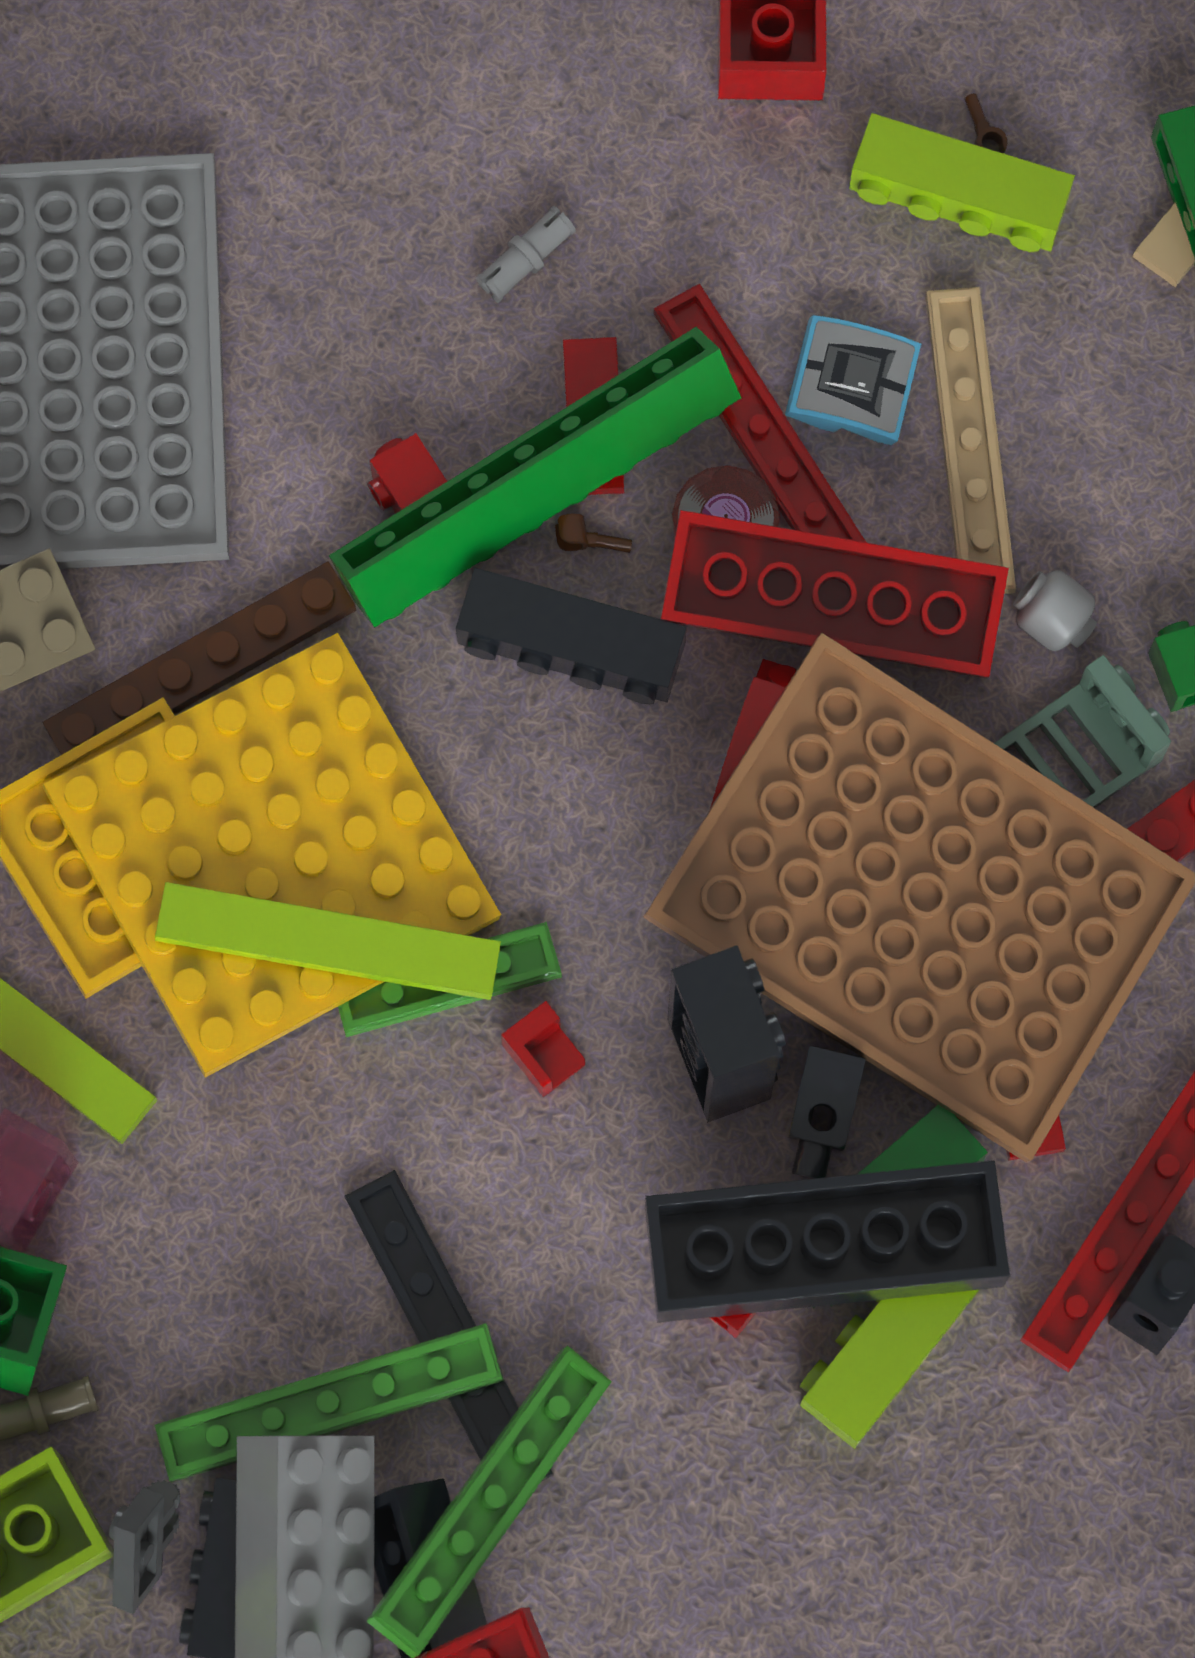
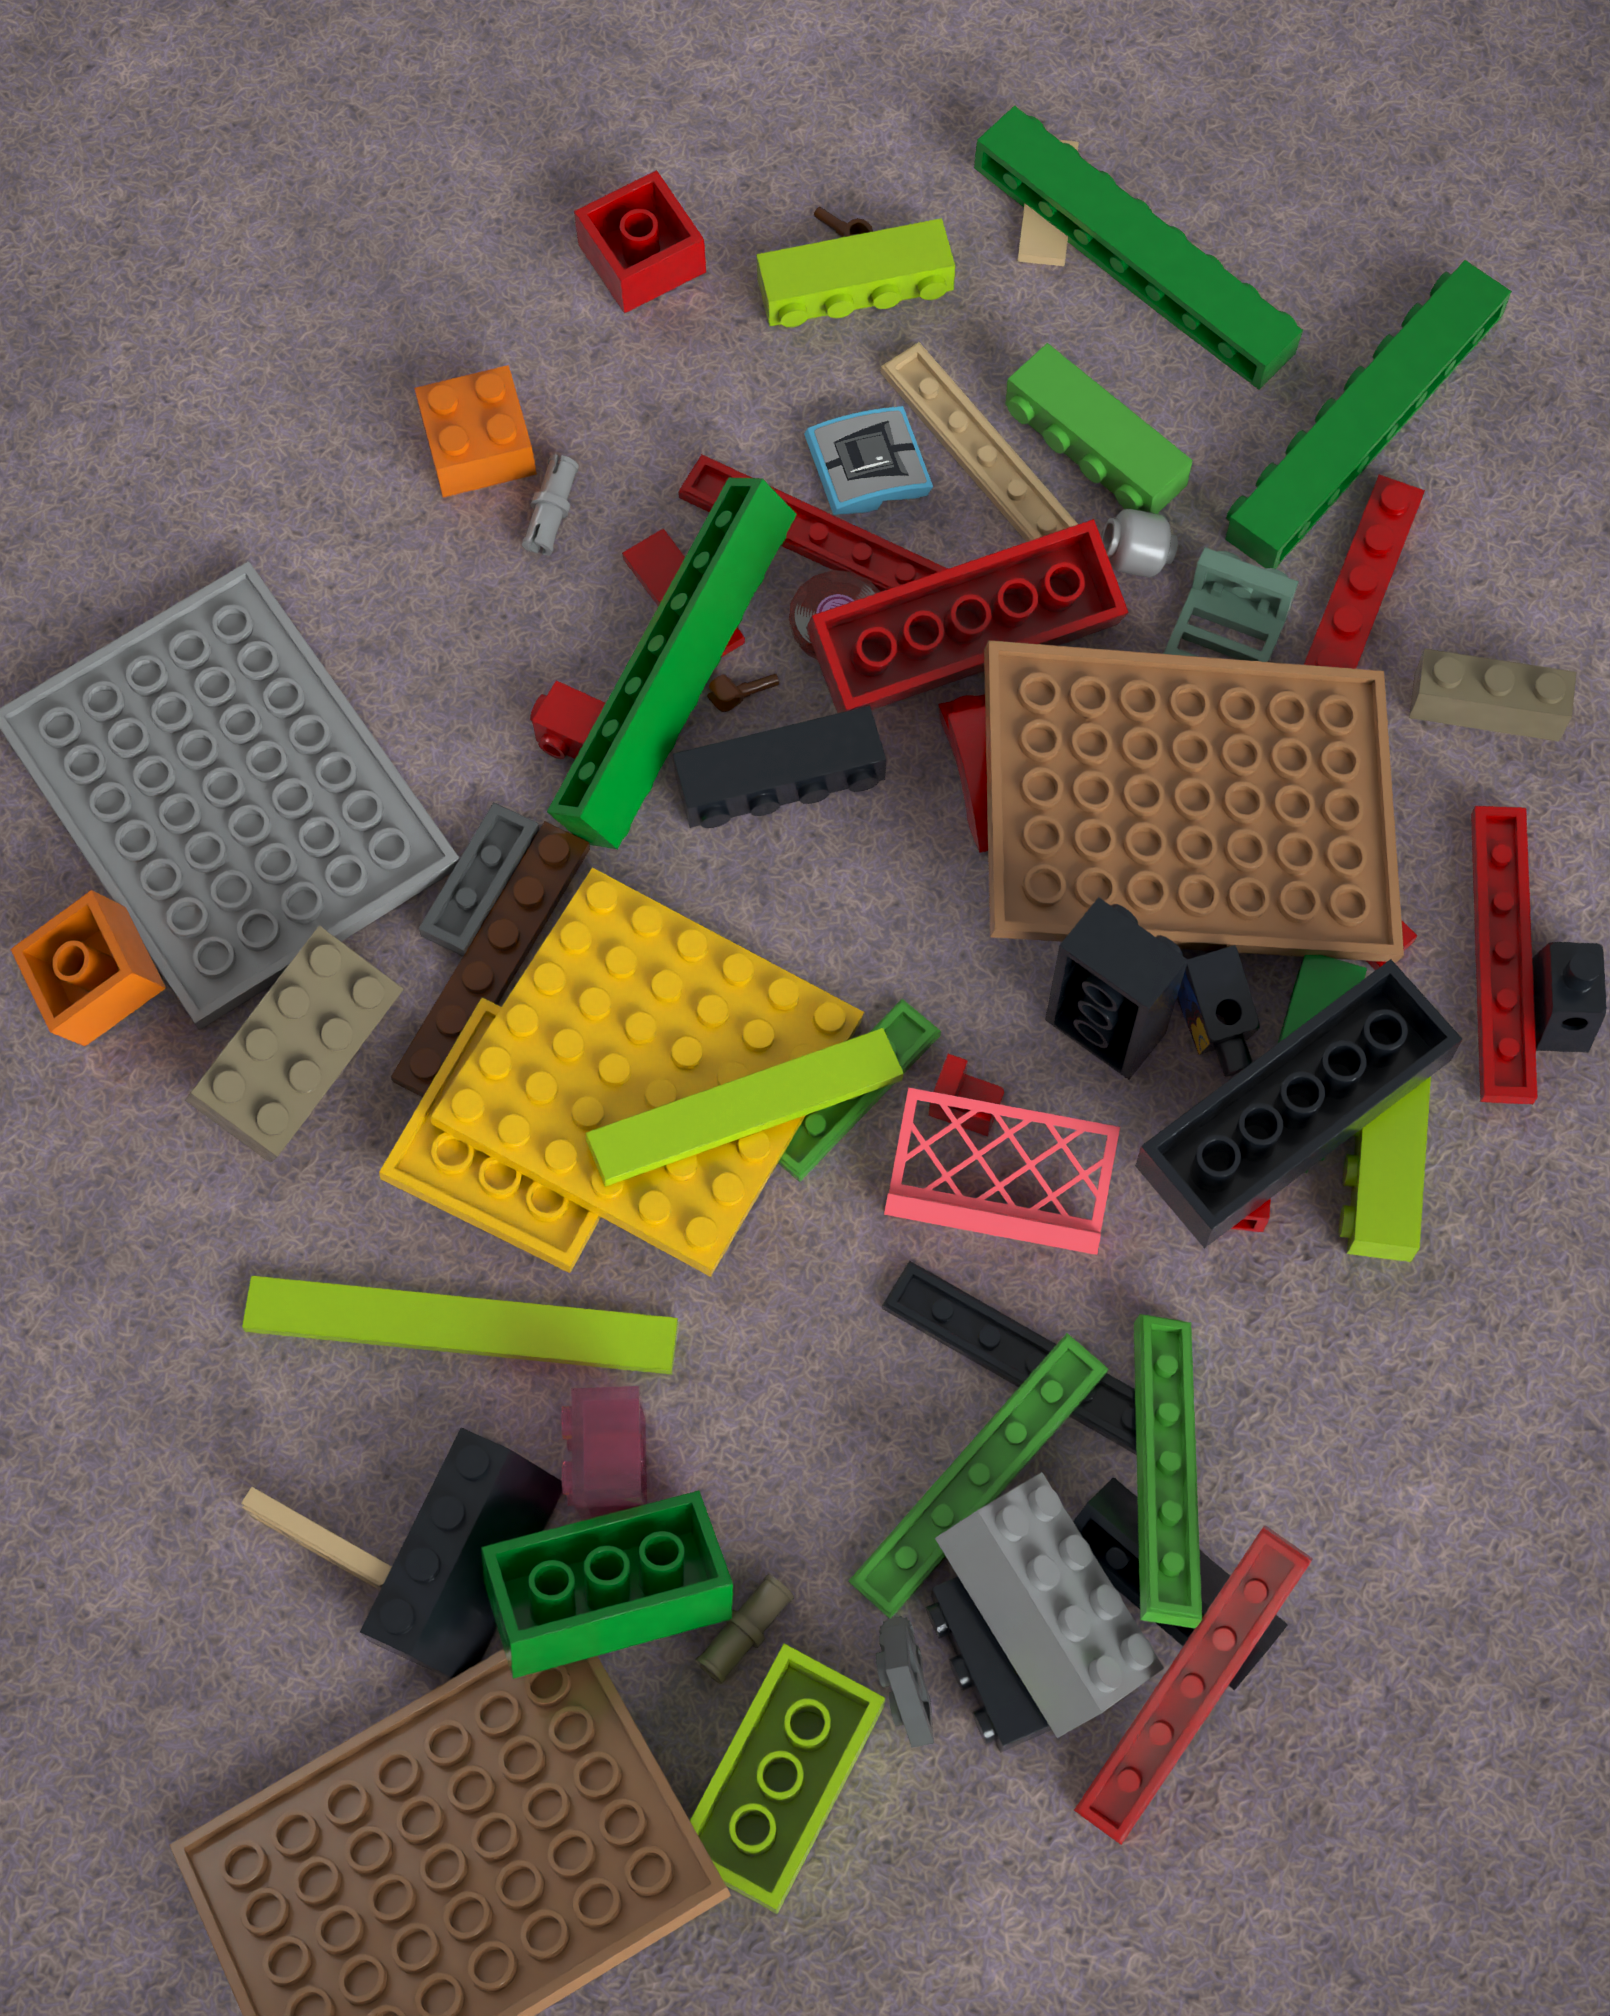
camera: 30 degrees left, 5 degrees down
(234, 581) = (478, 879): none -> dark grey plate
(492, 1177) = (992, 1216): none -> coral fence
(498, 142) = (475, 431): none -> orange brick
(1085, 477) = (1097, 432): none -> bright green brick

